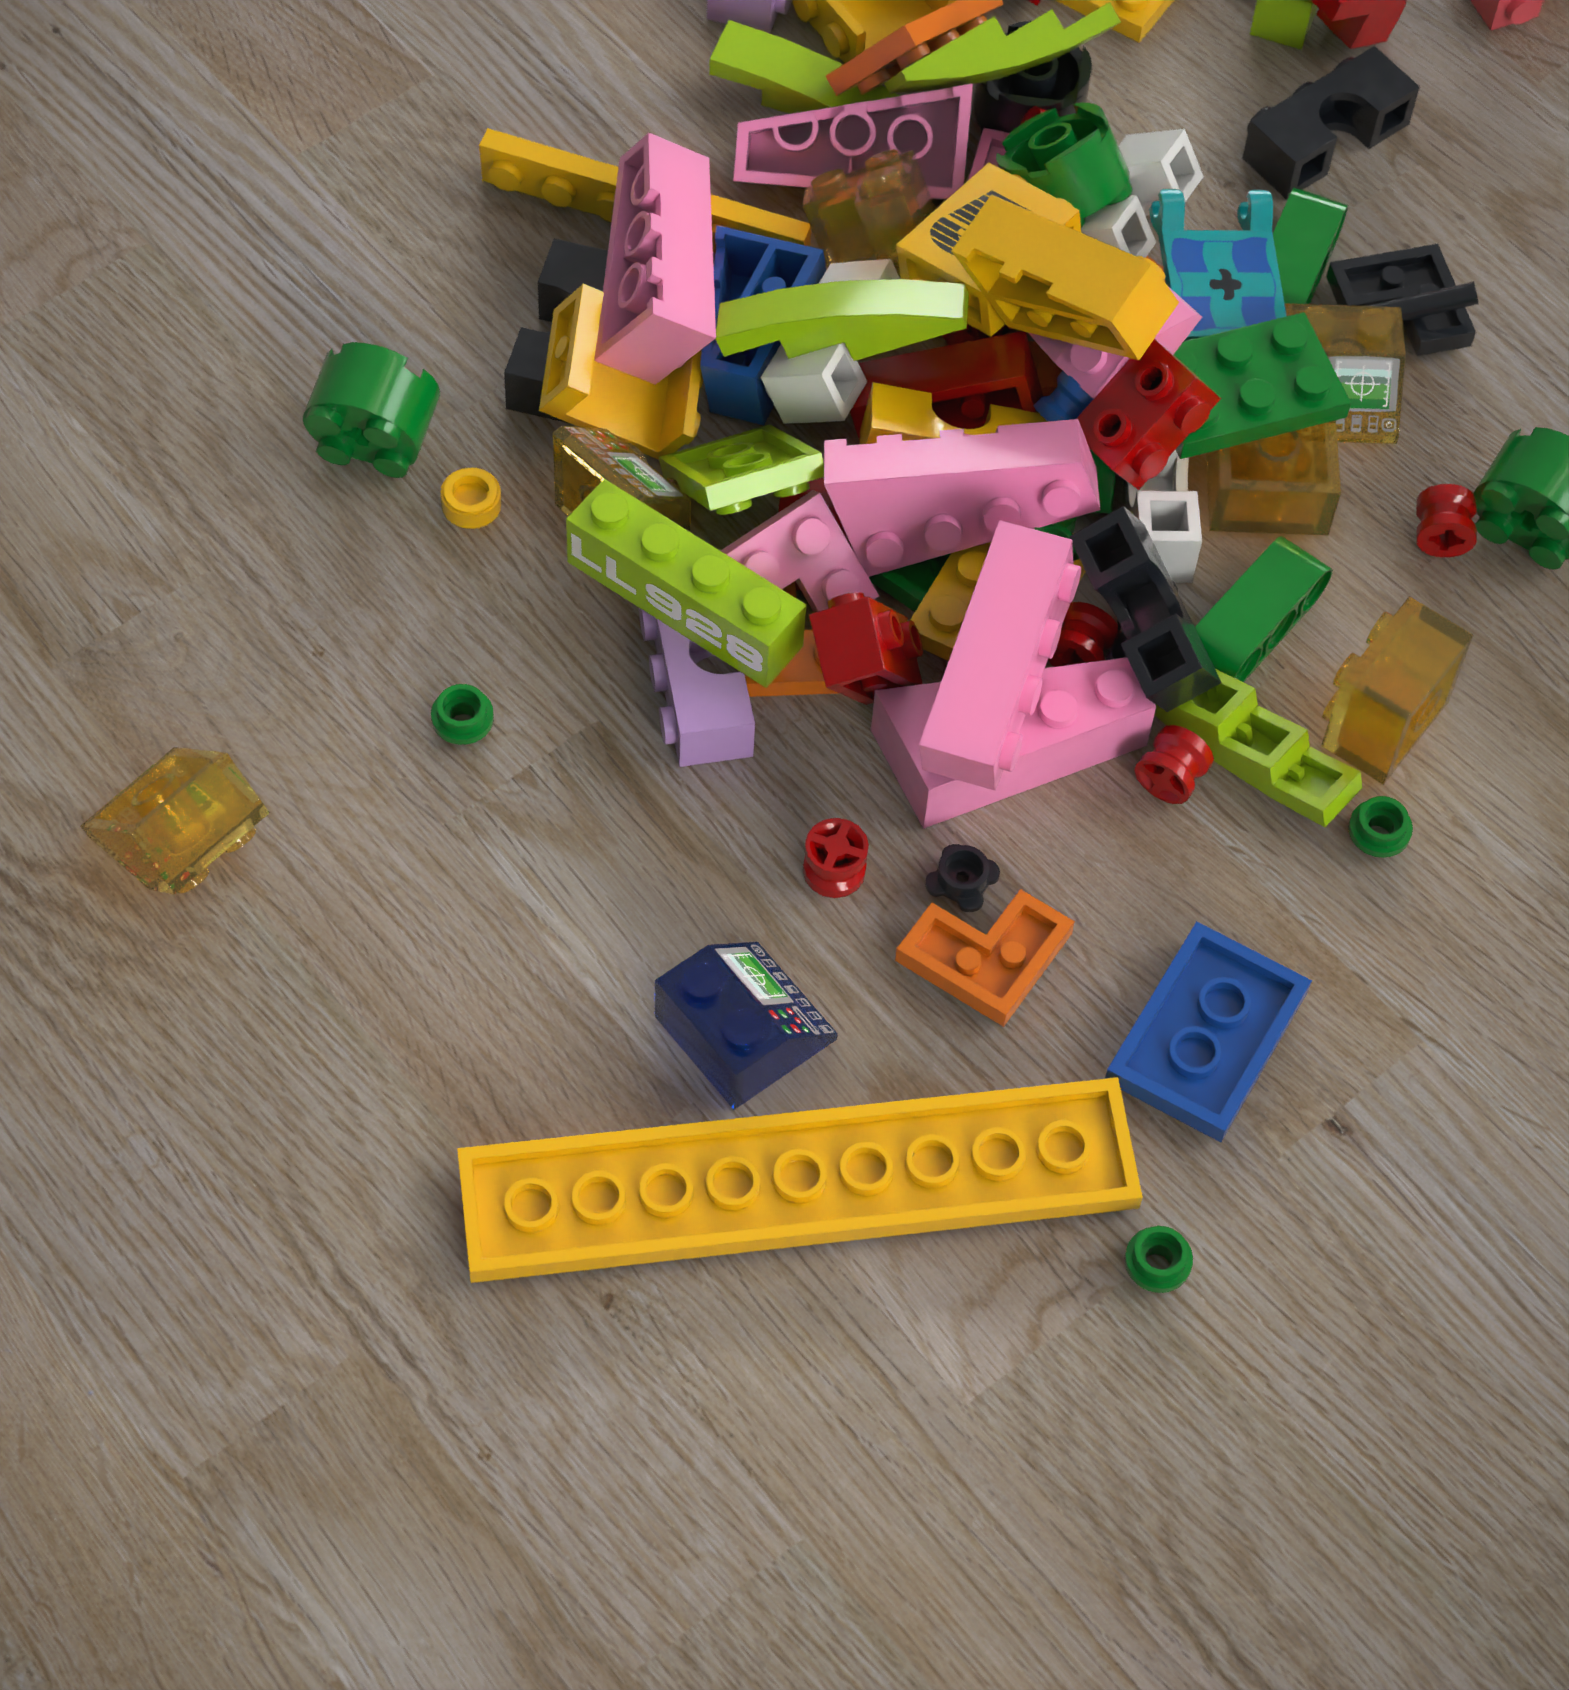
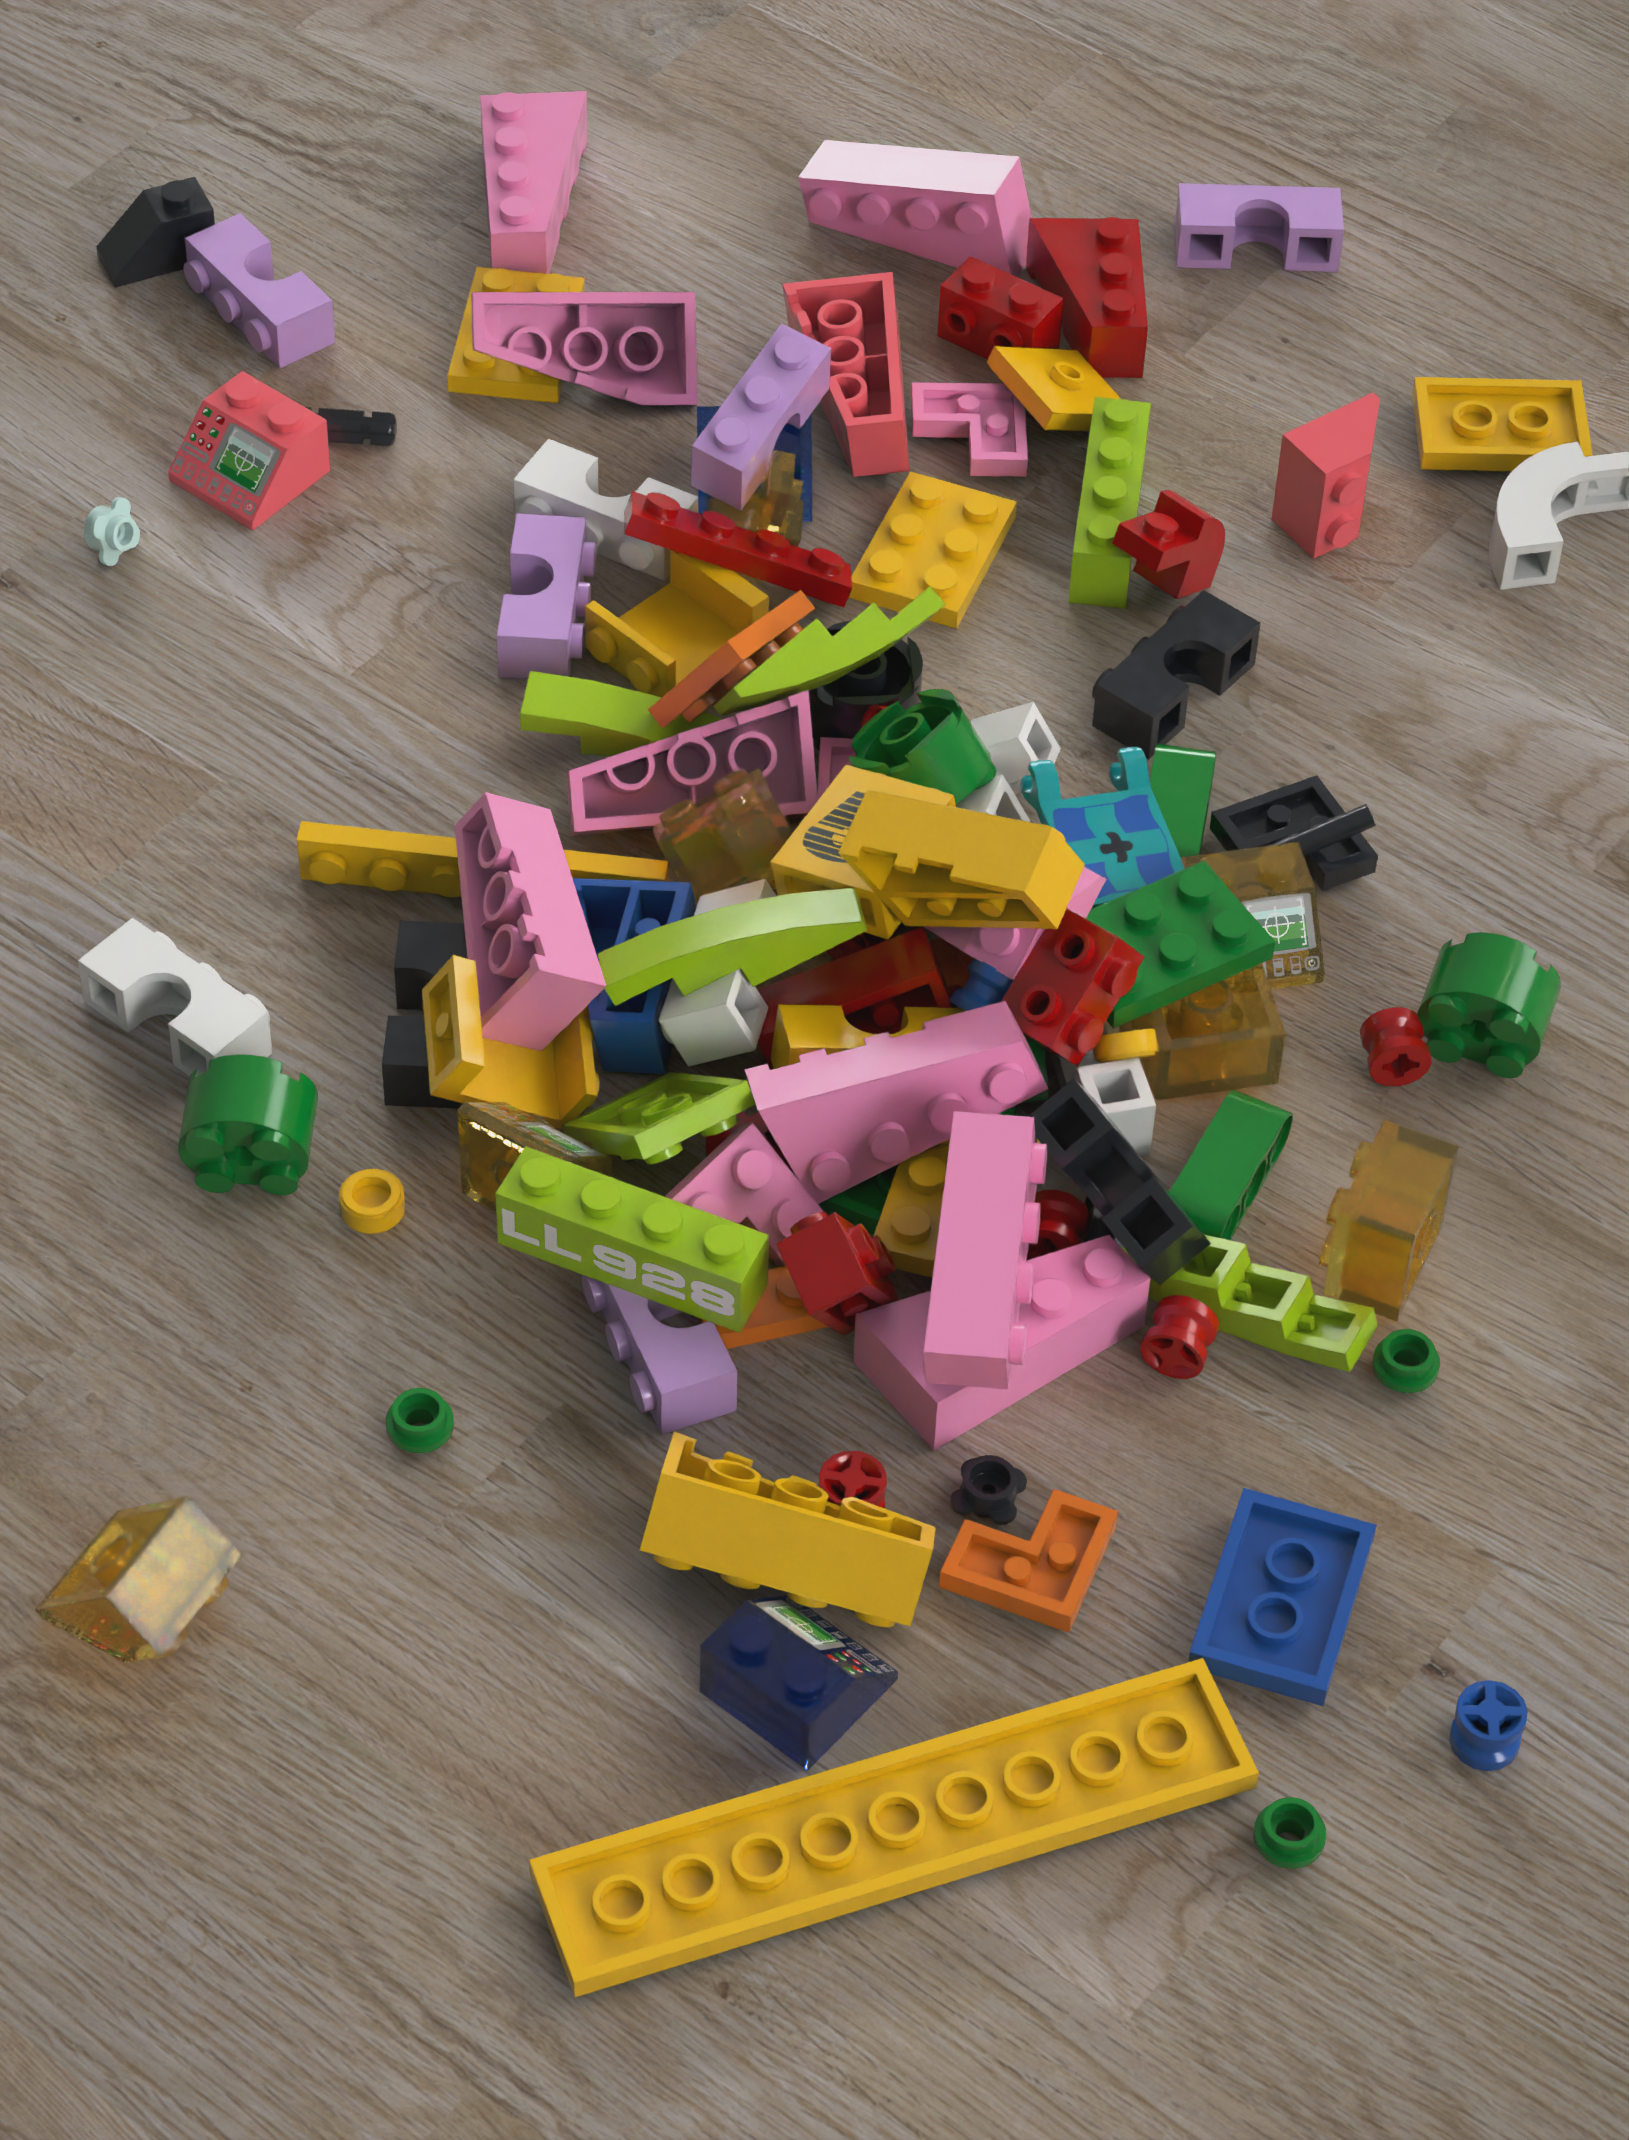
camera: 10 degrees left, 10 degrees down
(315, 249) = (145, 975): none -> white arch
(759, 888) = (786, 1536): none -> yellow wedge
(1188, 478) = (1126, 1045): none -> yellow tile
(1382, 1184) = (1503, 1715): none -> blue wheel

